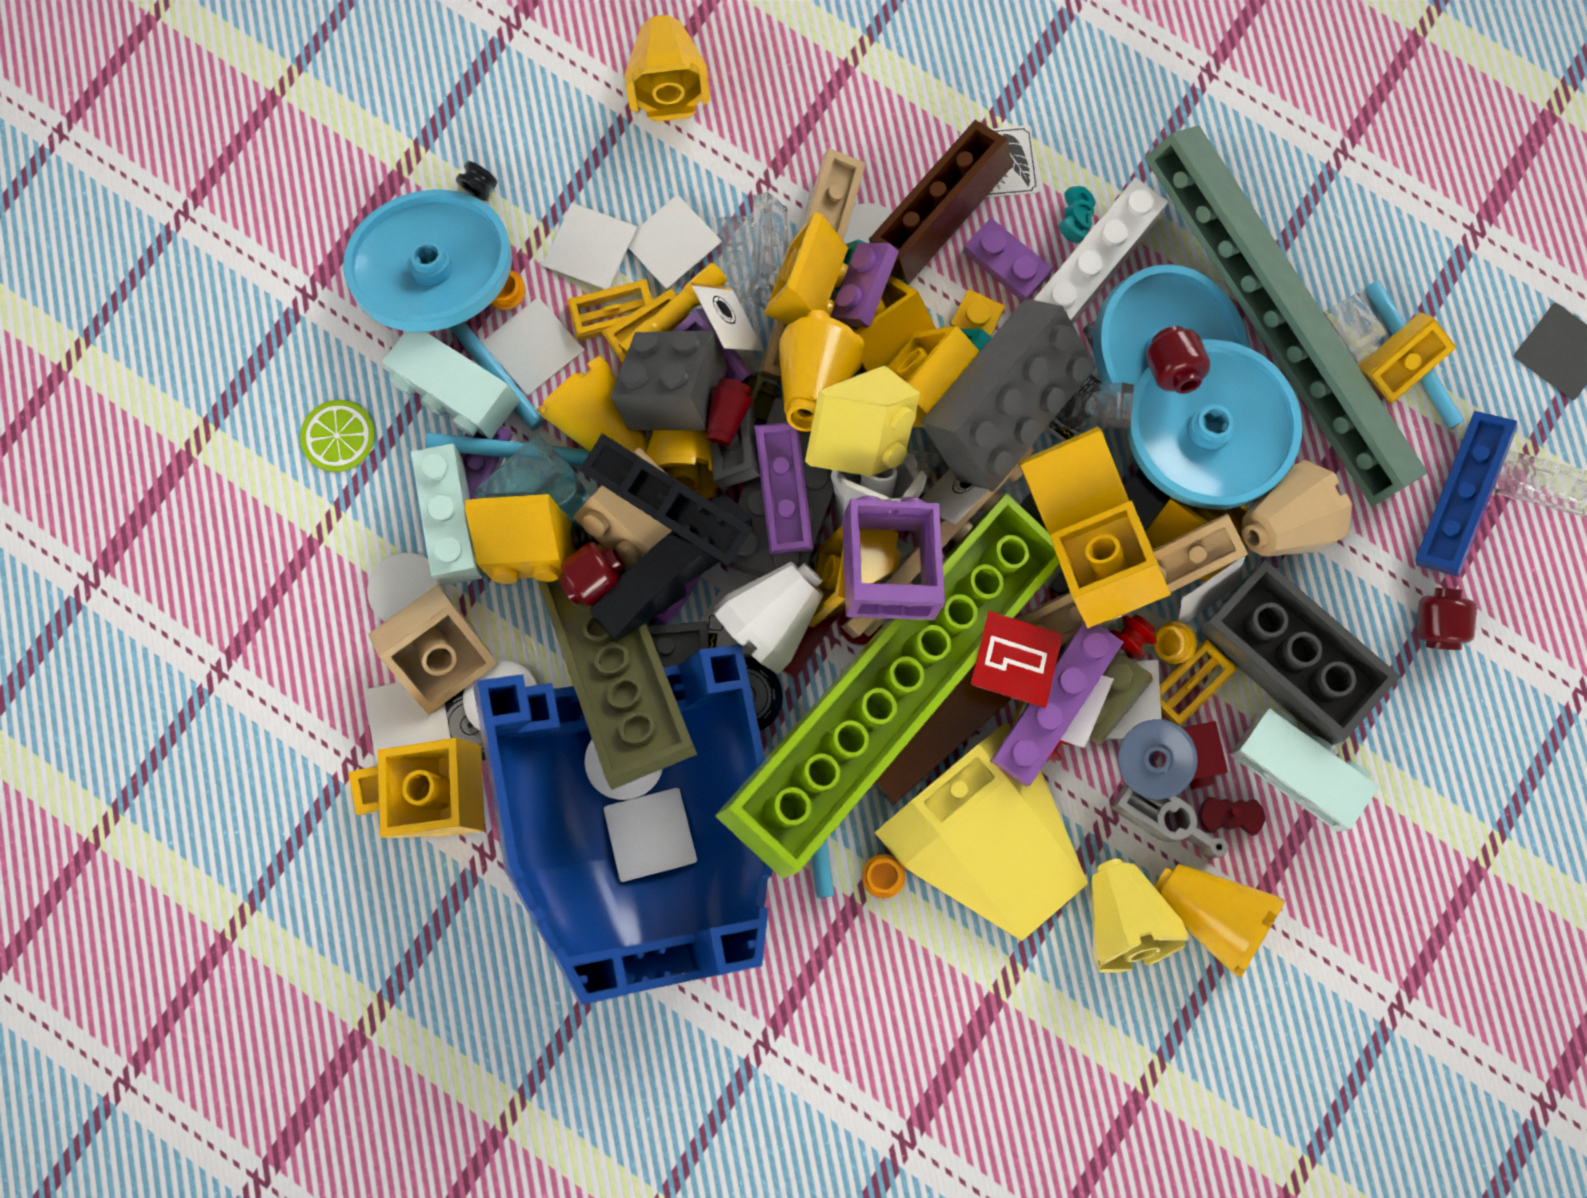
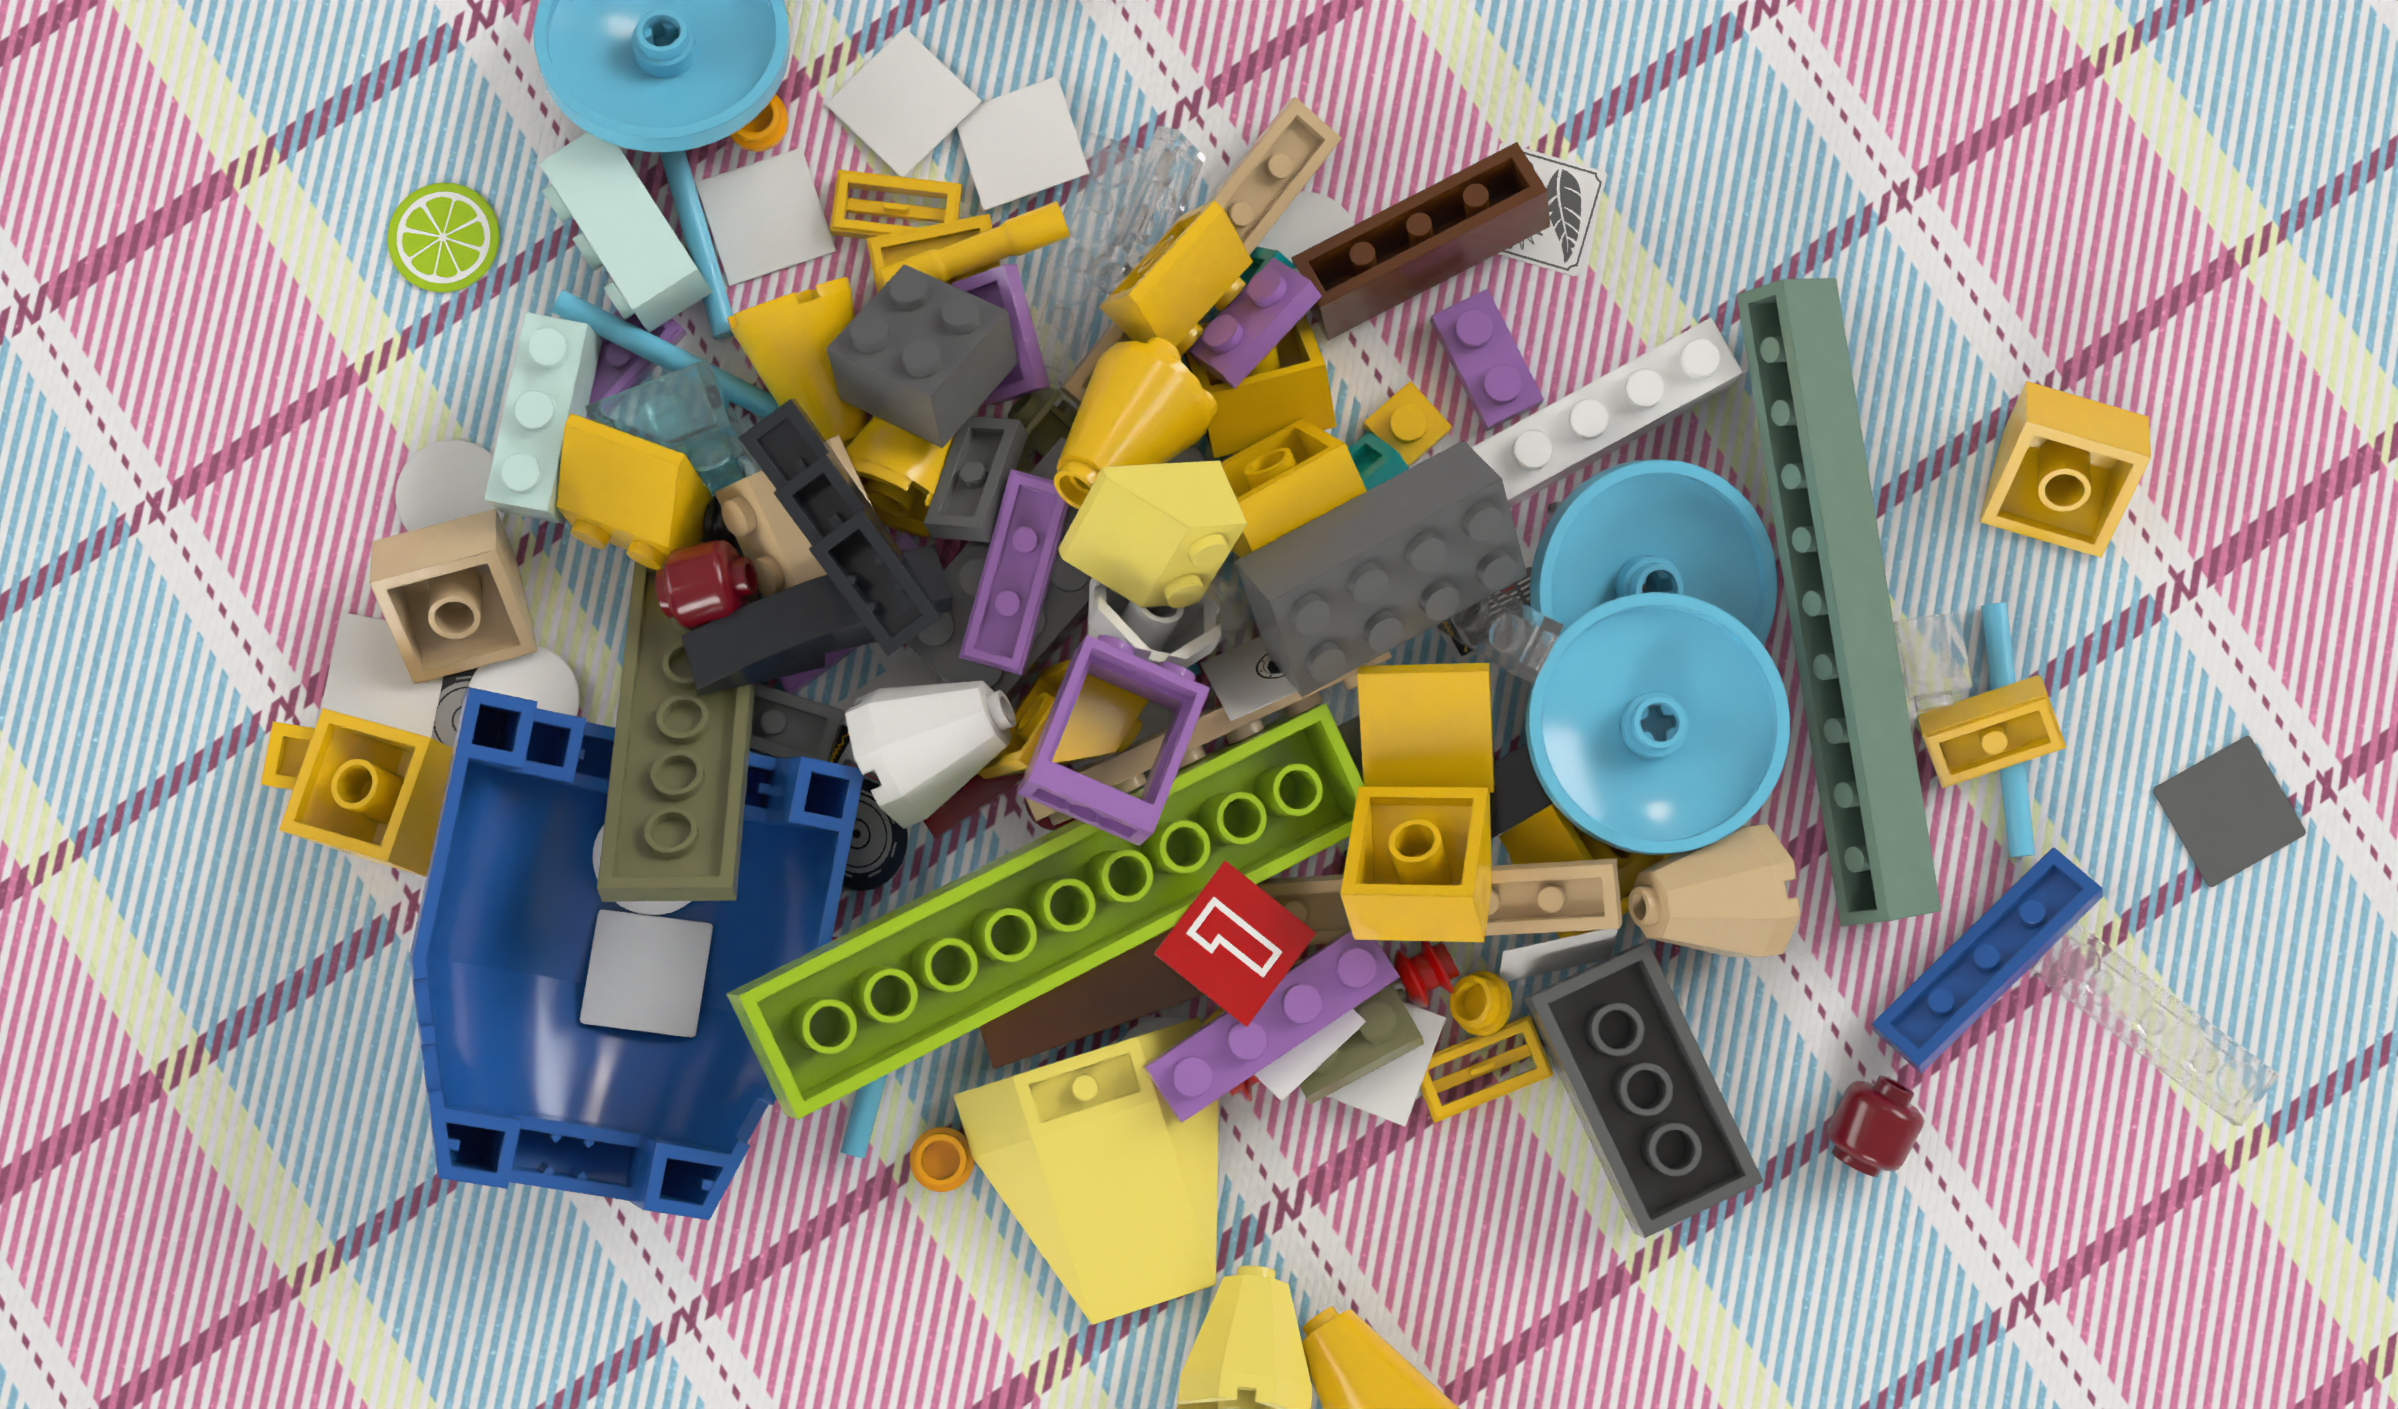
camera: 20 degrees right, 5 degrees up
(727, 317) = (1043, 293): white sticker -> none
(727, 410) = (981, 432): dark red cone -> none
(1077, 214) = (1613, 334): teal piece -> none
(1138, 753) = (1350, 1152): sand blue piece -> none
(1150, 814) = (1364, 1219): light grey piece -> none
(1178, 359) = (1637, 616): dark red head -> none
(1209, 754) = (1440, 1171): dark red brick -> none
(1231, 815) = (1438, 1262): dark red piece -> none
(1305, 769) = (1584, 1251): light aqua brick -> none
(1380, 188) = (2066, 469): none -> yellow slope

